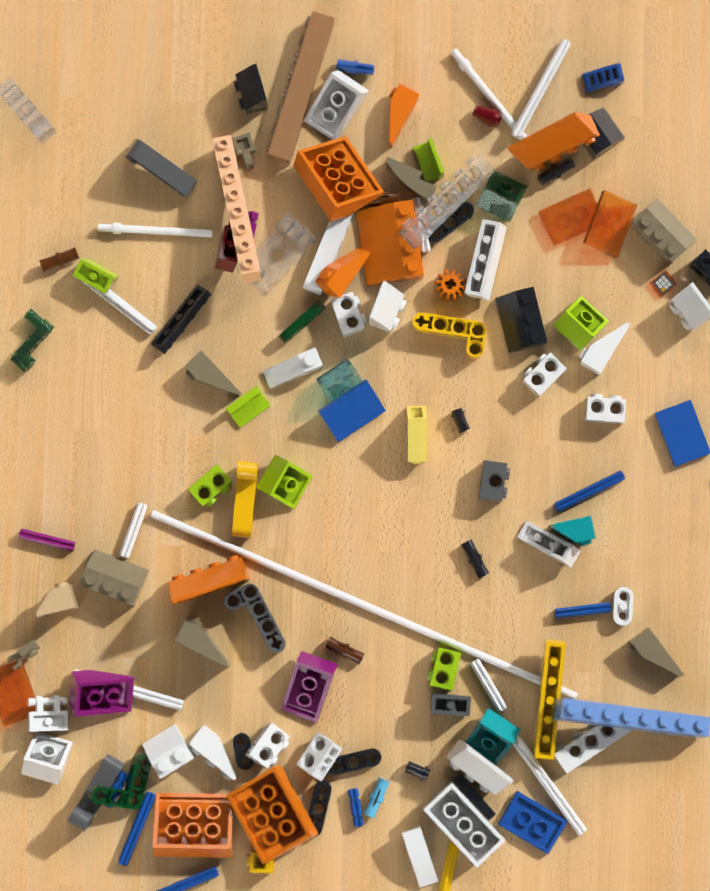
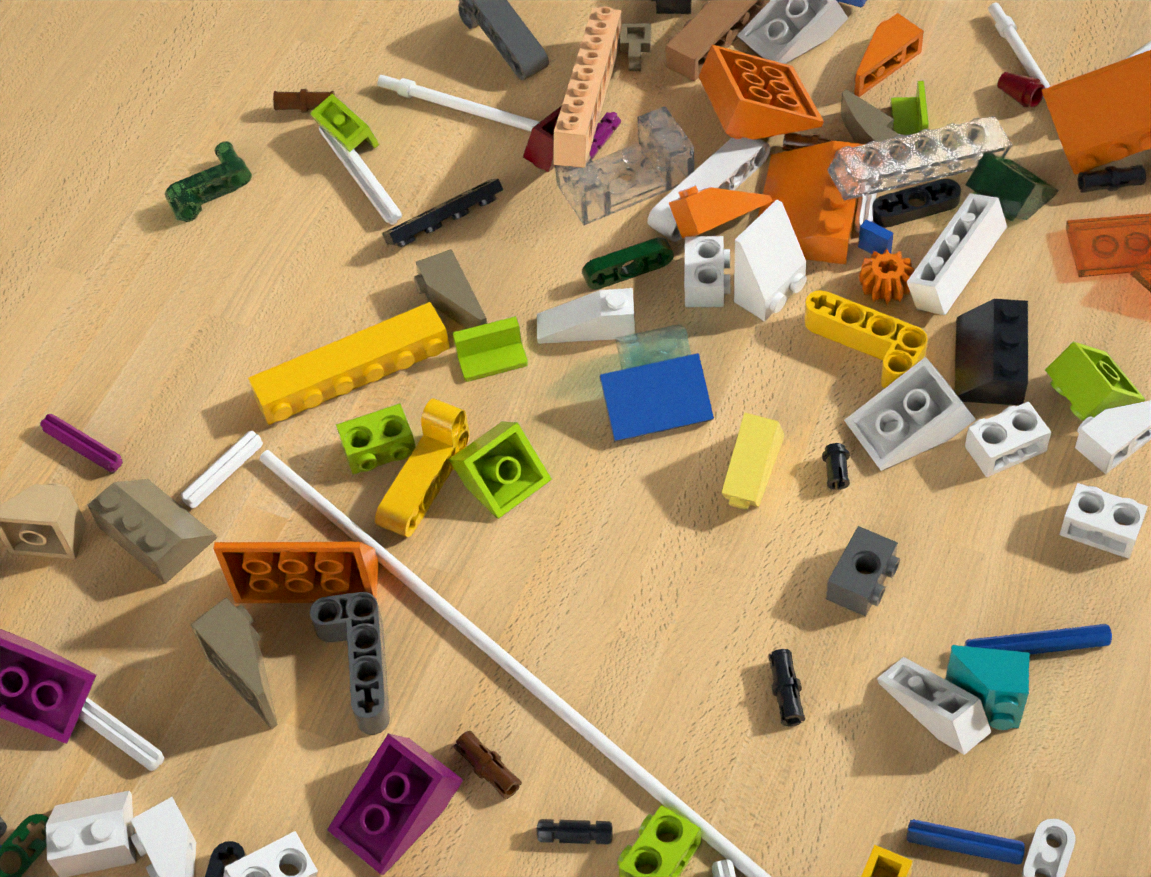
camera: 25 degrees right, 30 degrees down
(174, 441) = (349, 363): none -> yellow brick
(399, 669) = (574, 831): none -> black axle
(436, 260) = (874, 238): none -> blue tile
(489, 377) = (909, 416): none -> white slope

